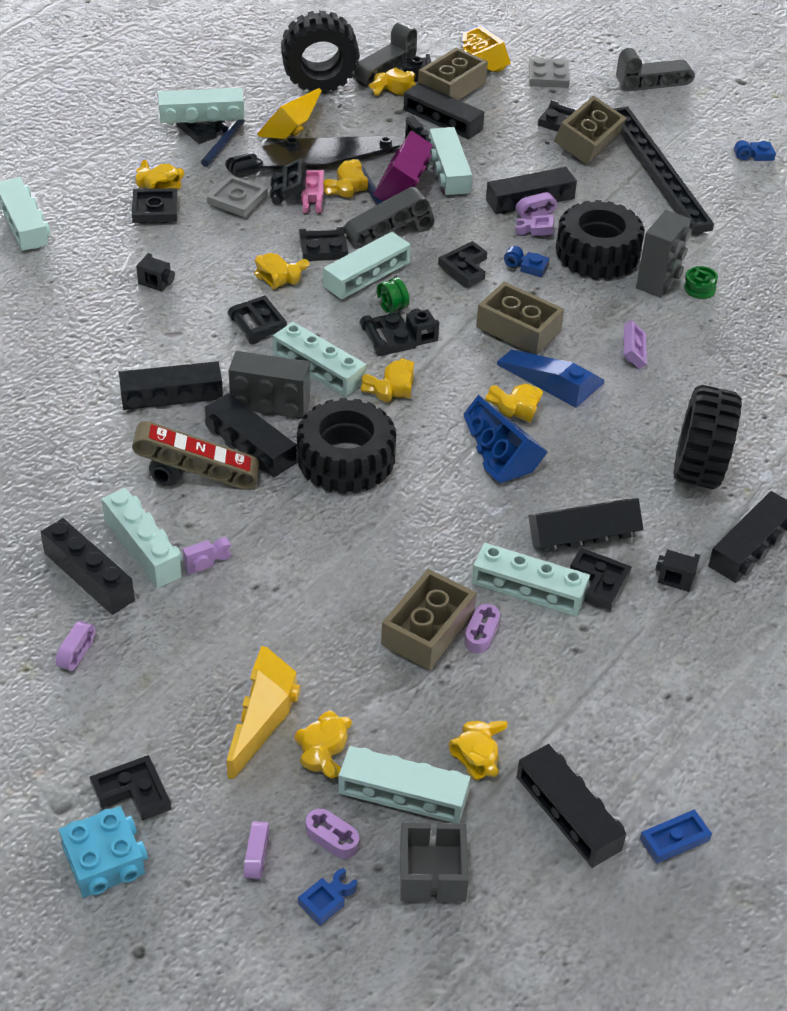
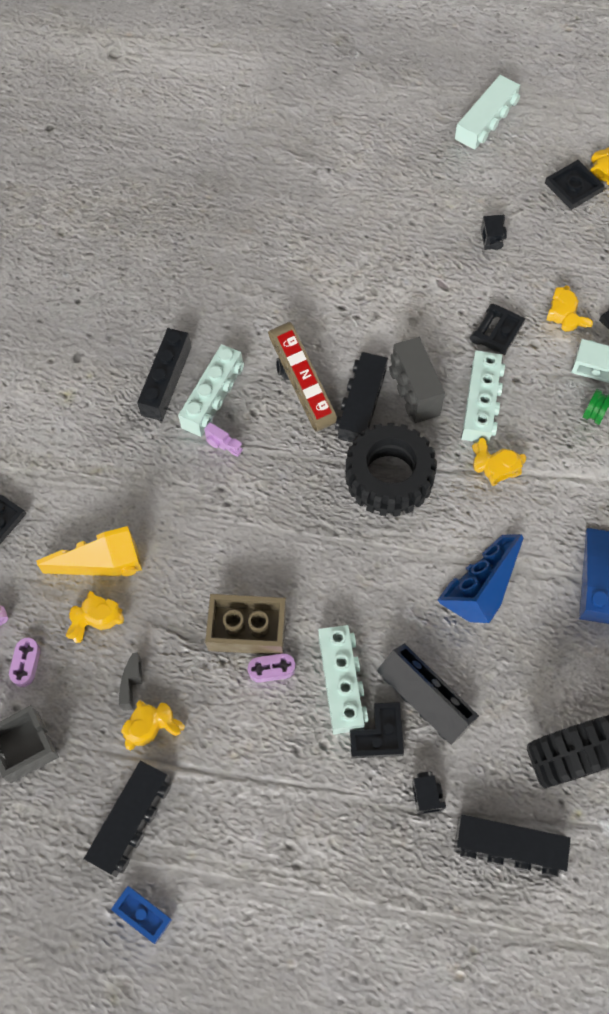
camera: 65 degrees right, 20 degrees up
(75, 645) = (93, 411): lavender beam -> none
(170, 385) = (375, 314): black brick -> none
(395, 331) = (561, 433): black plate -> none
(404, 784) = (81, 689): light aqua brick -> none
(415, 738) = (131, 676): none -> dark grey slope
(423, 320) = (581, 448): black brick -> none
(520, 403) = (537, 572): yellow animal -> none

